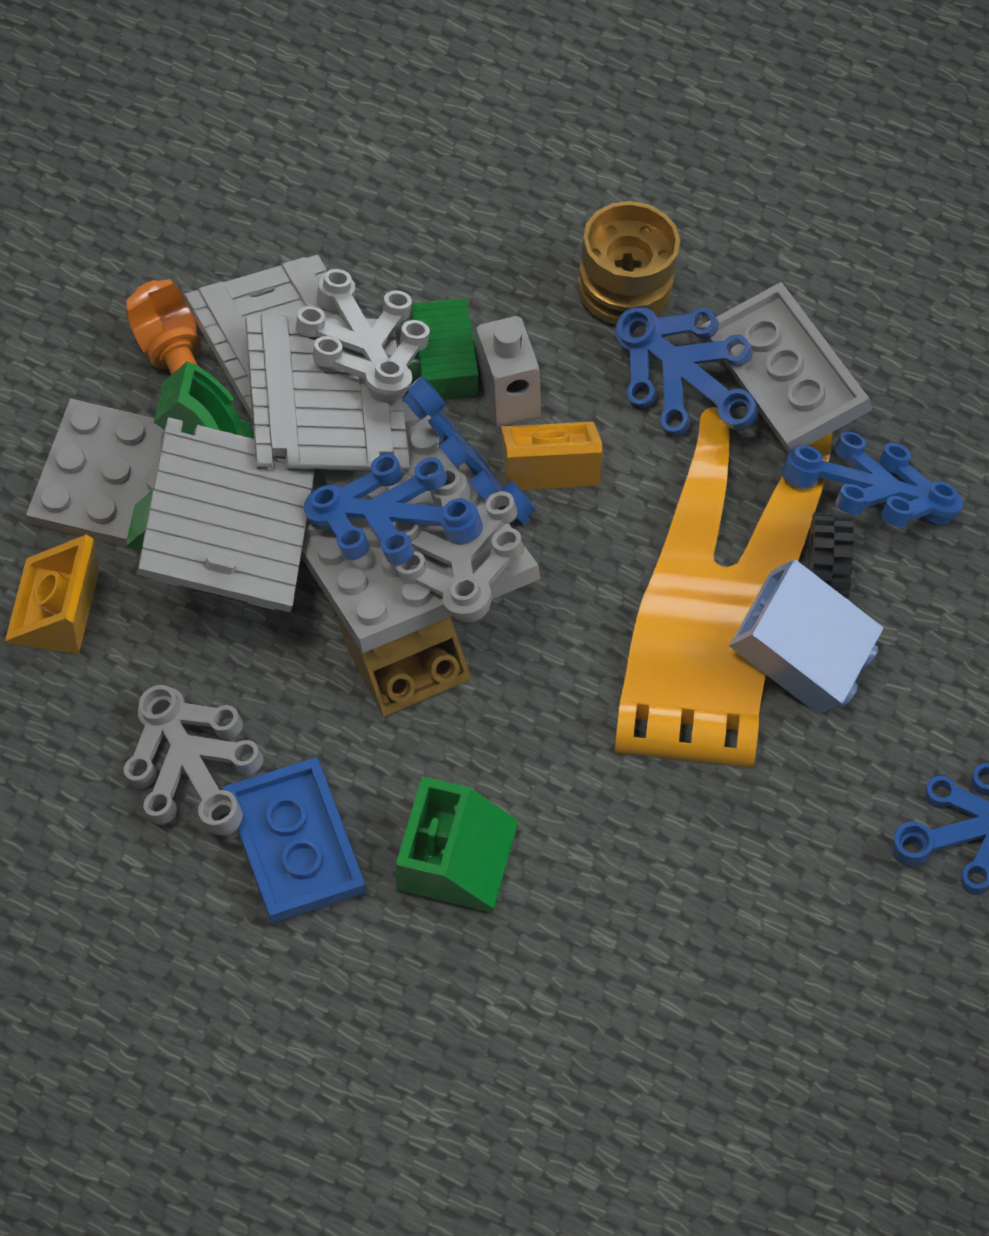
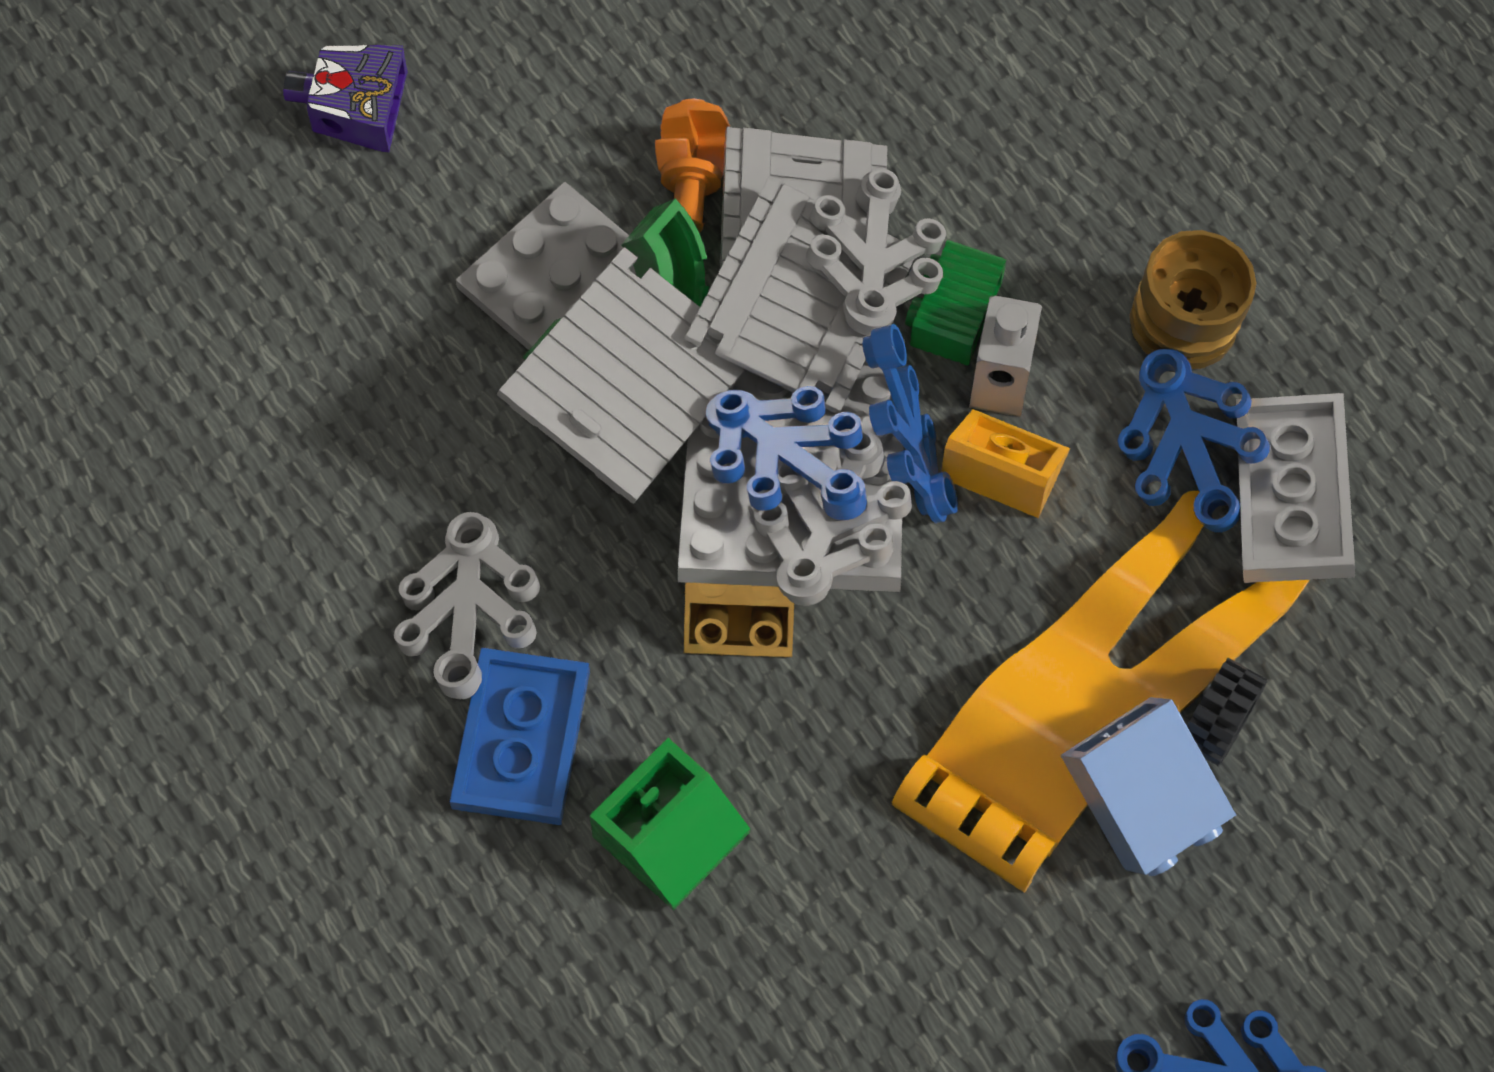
camera: 30 degrees right, 5 degrees up
(55, 597) = (436, 377): light orange slope -> none
(933, 501) = (1371, 702): blue plant -> none

